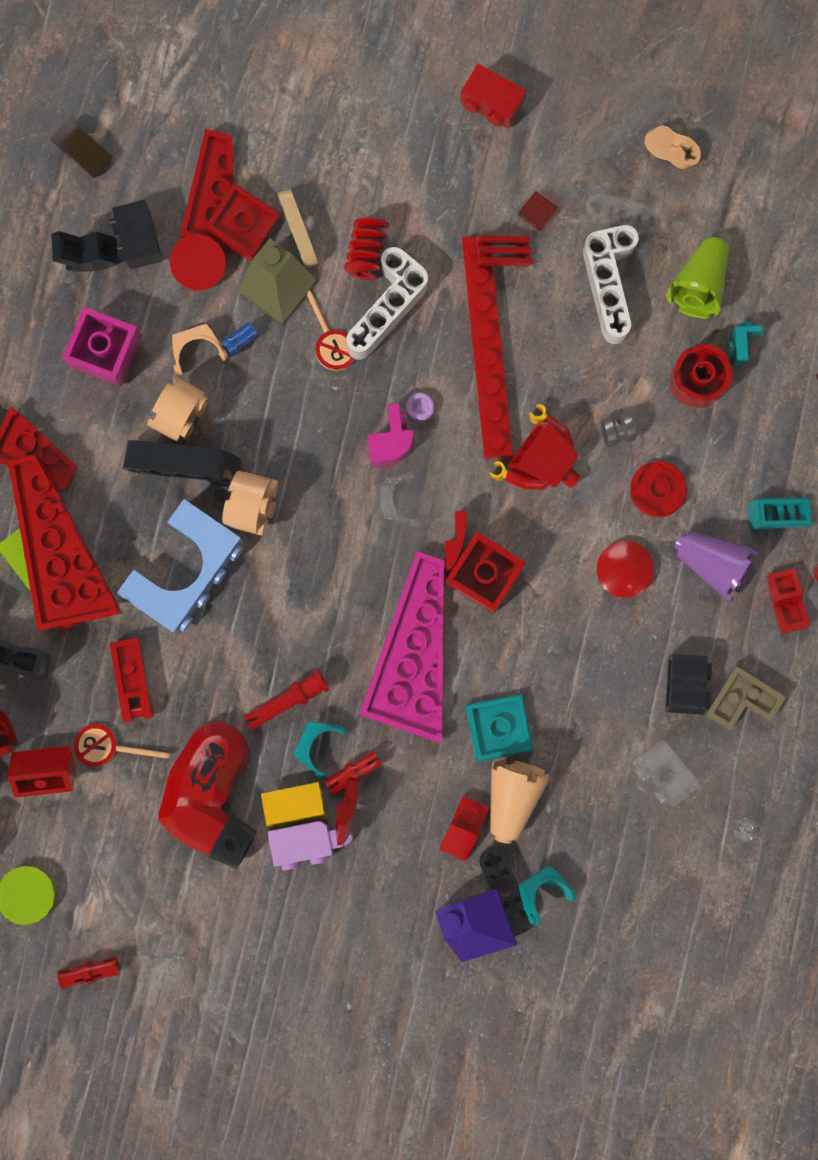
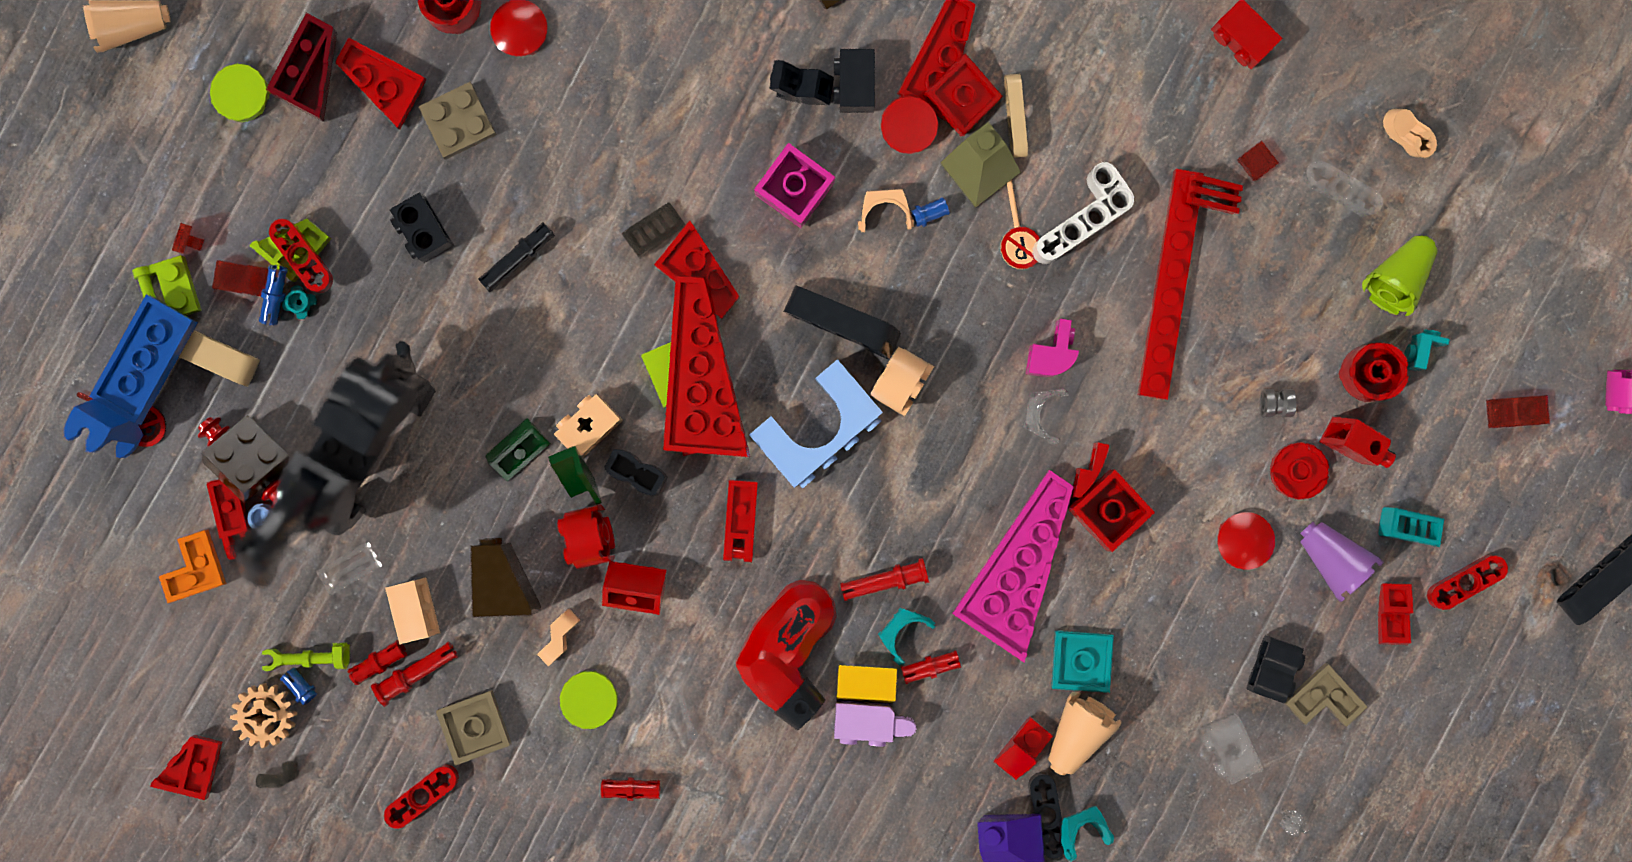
camera: 10 degrees right, 5 degrees up
(97, 746) = (691, 574): piece -> none
(177, 410) = (853, 269): light nougat brick -> none
(346, 812) = (917, 704): red slope -> none
(364, 248) = (1078, 153): red piece -> none
(420, 407) = (1089, 327): lavender tile -> none
(543, 457) = (1197, 411): red torso -> none
(610, 287) = (1312, 259): white beam -> none
(705, 445) = (1358, 442): none -> red torso

